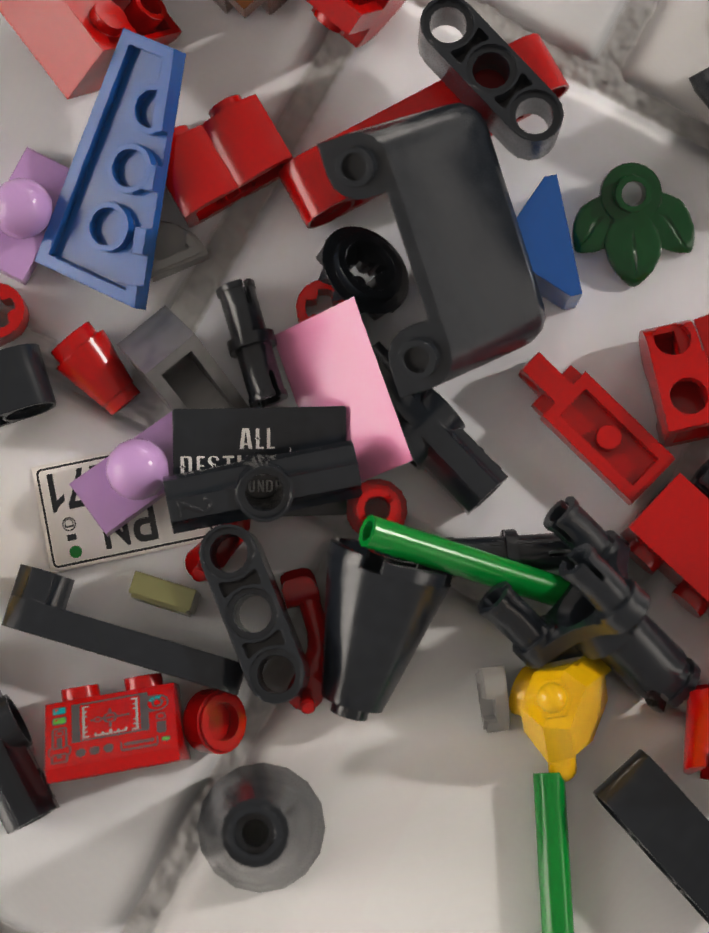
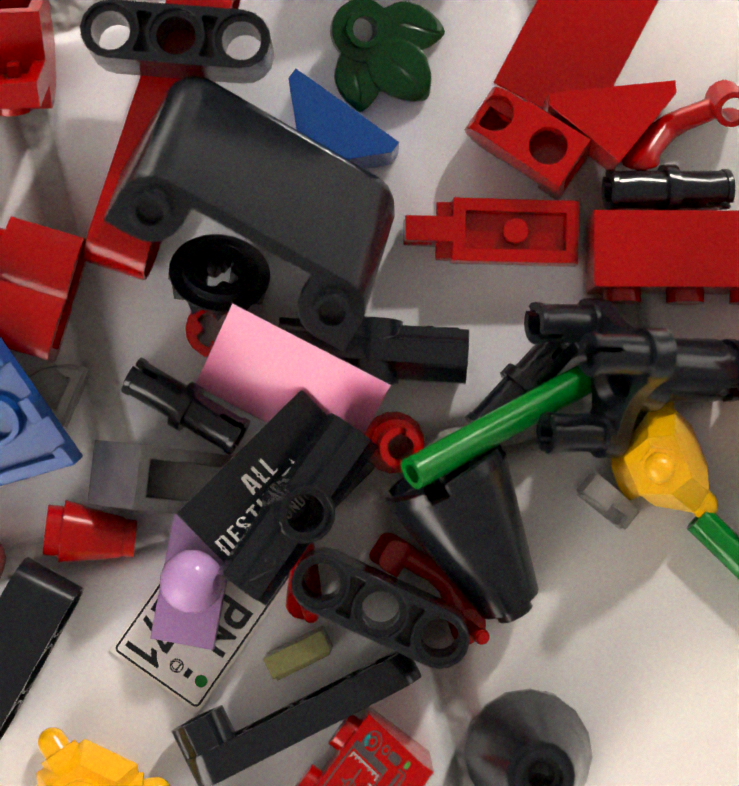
camera: 40 degrees left, 5 degrees up
(214, 721) = (423, 711): red tile -> none

